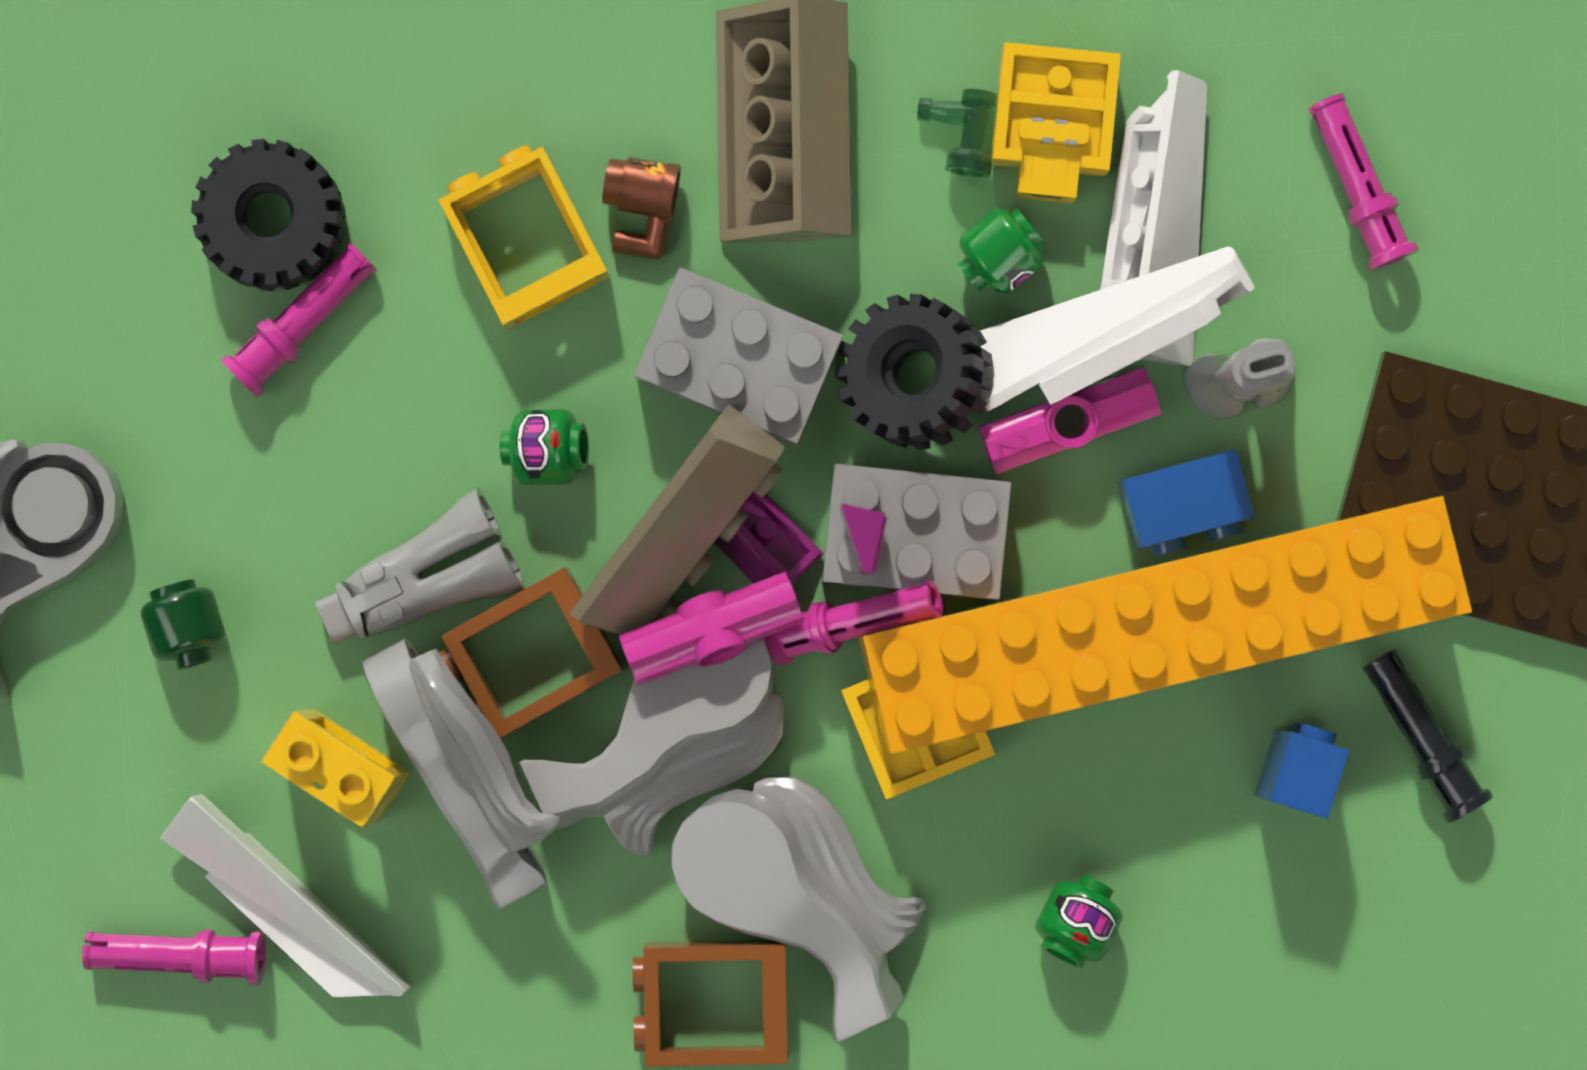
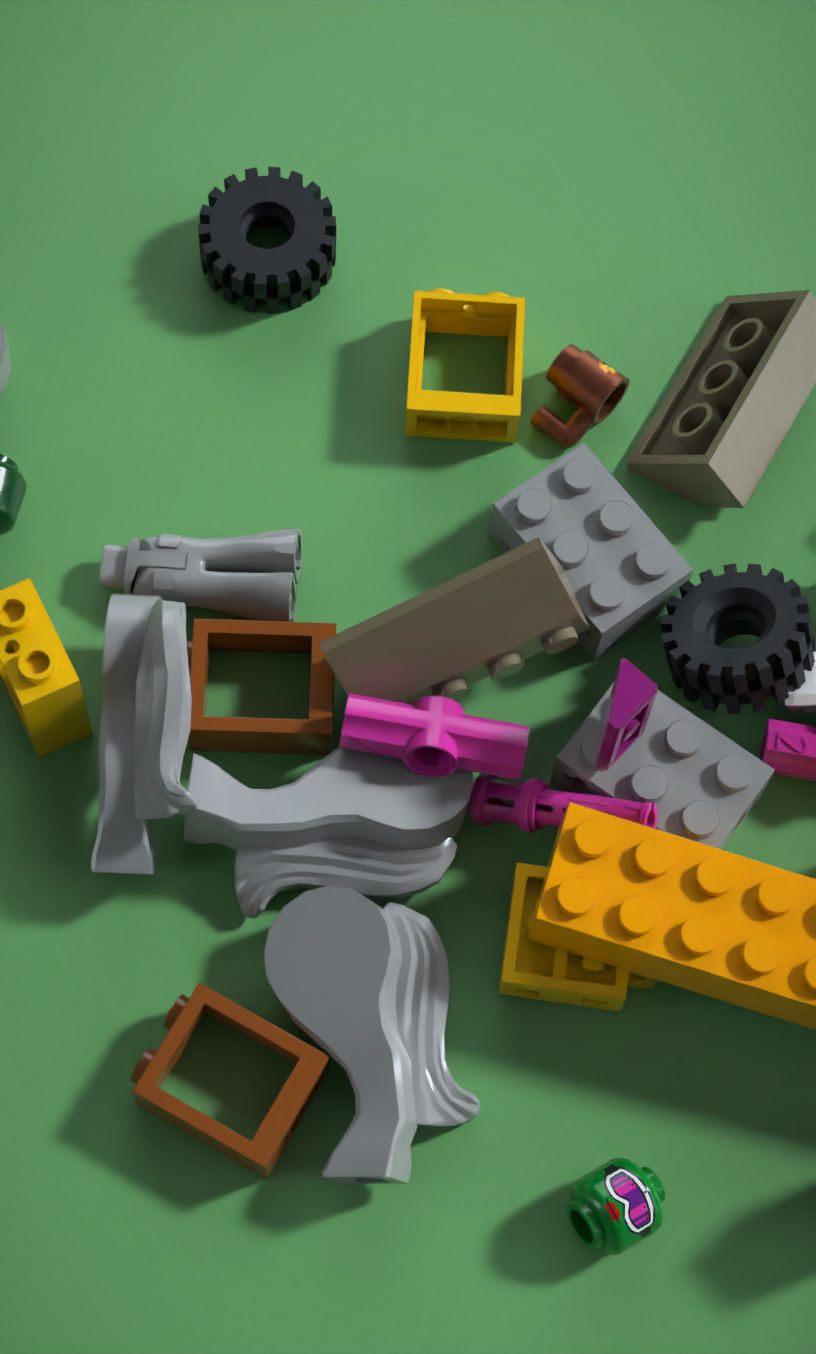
camera: 25 degrees right, 20 degrees down
(279, 338) = (214, 333): dark pink pin -> none
(545, 447) = (380, 529): green head -> none
(769, 543) = (524, 701): magenta slope -> none

